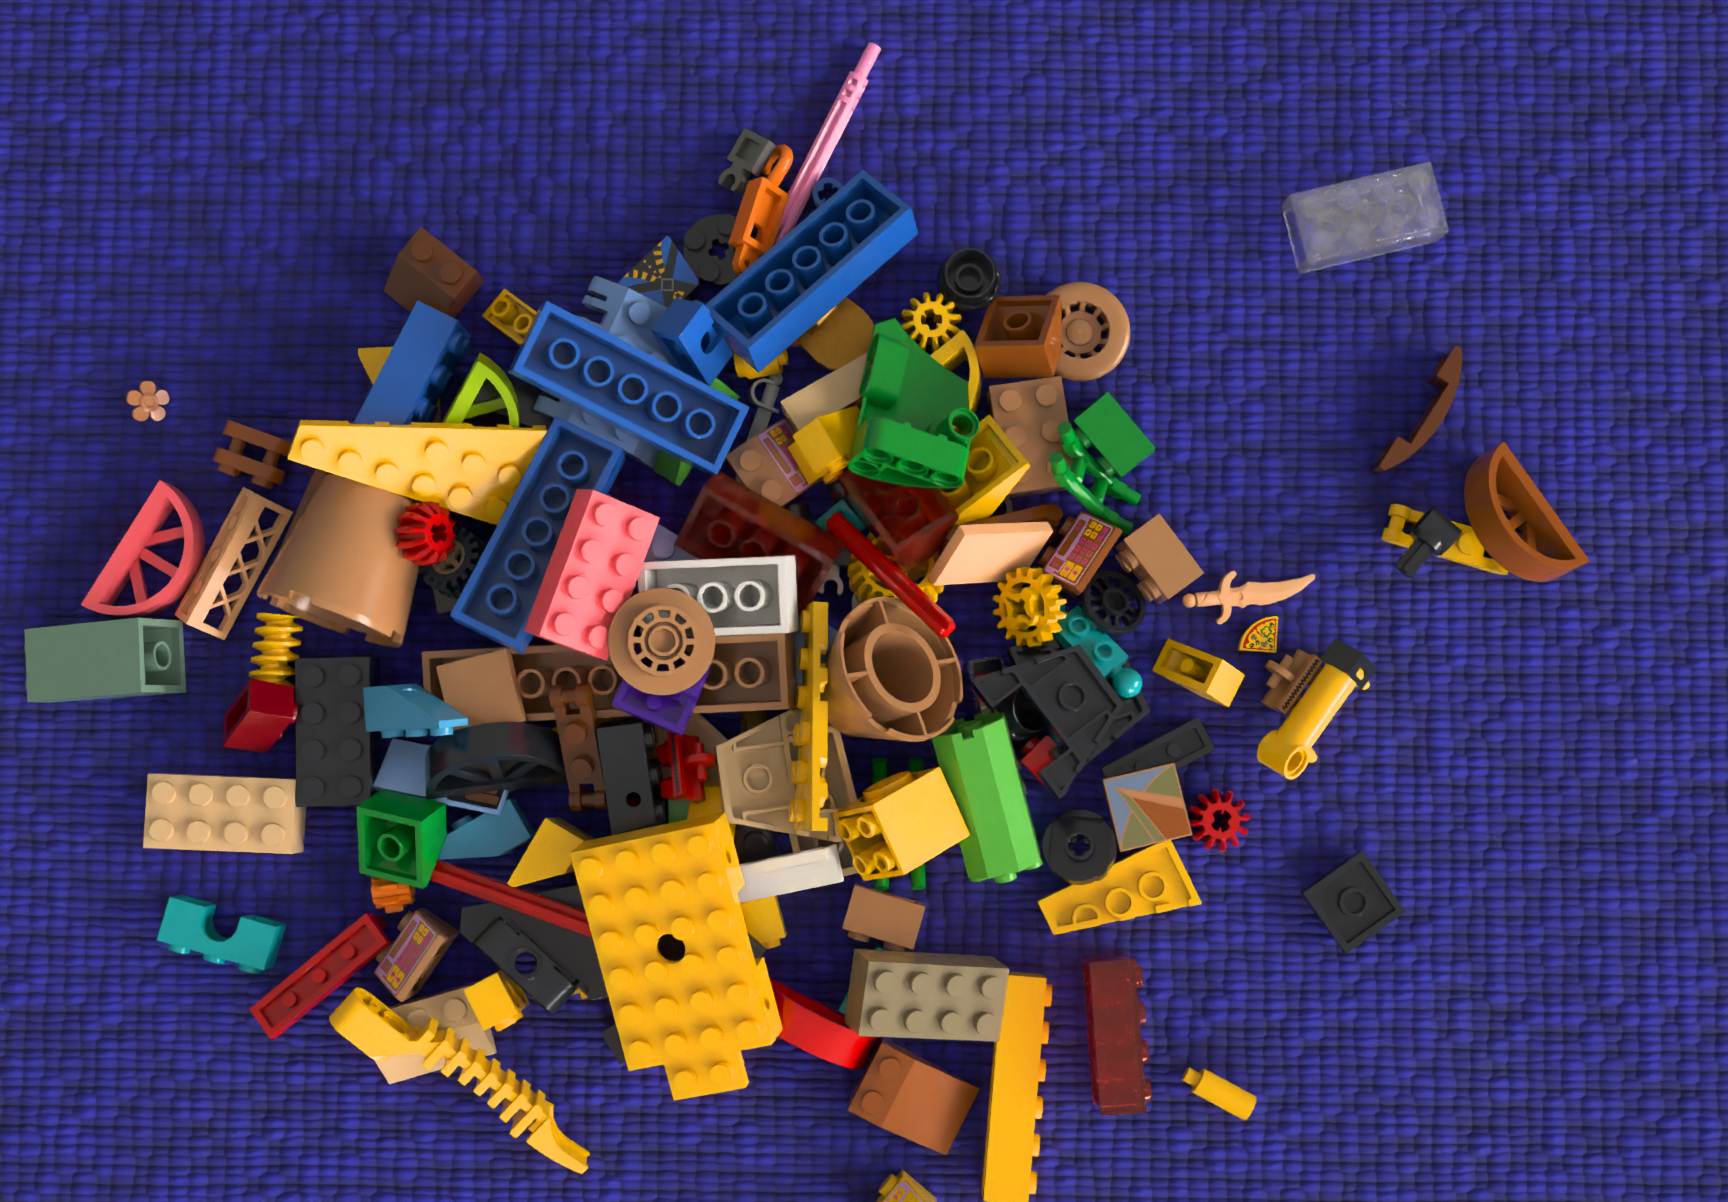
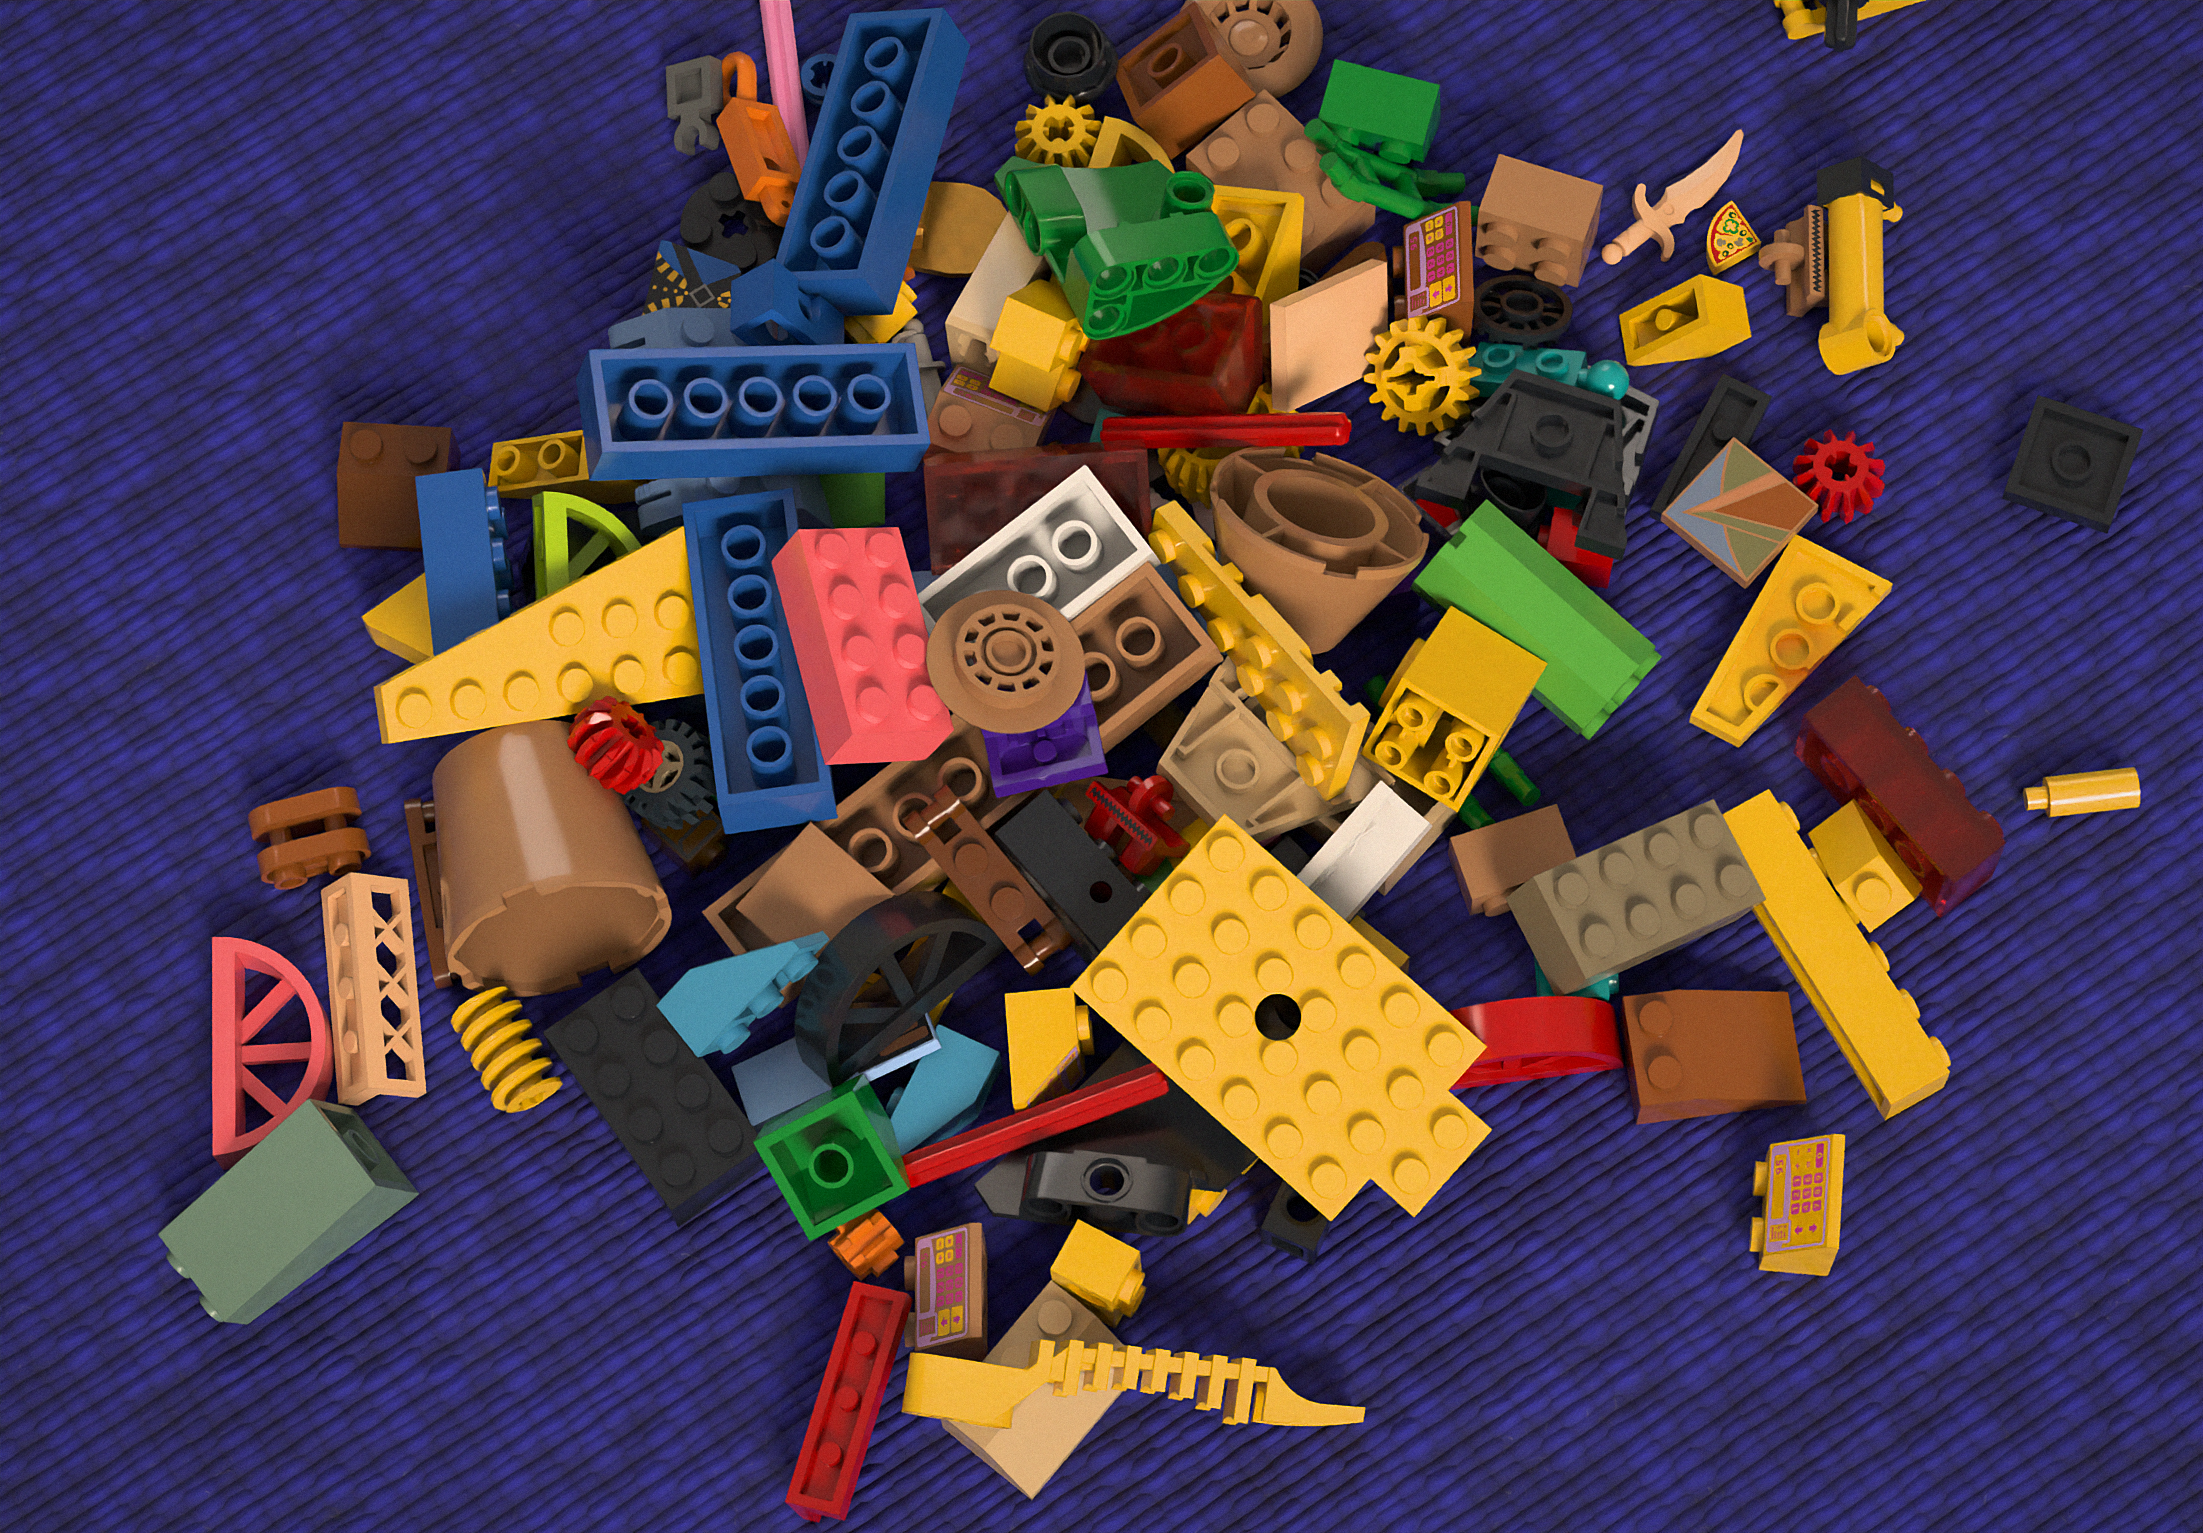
camera: 30 degrees left, 15 degrees down
(147, 402) = (125, 867): nougat plant -> none
(190, 926) = (727, 1442): teal arch -> none
(223, 814) = (580, 1293): tan brick -> none
(259, 716) = (544, 1132): dark red brick -> none
(1066, 1058) = (1863, 866): none -> yellow slope
(1093, 863) = (1703, 642): black plate -> none

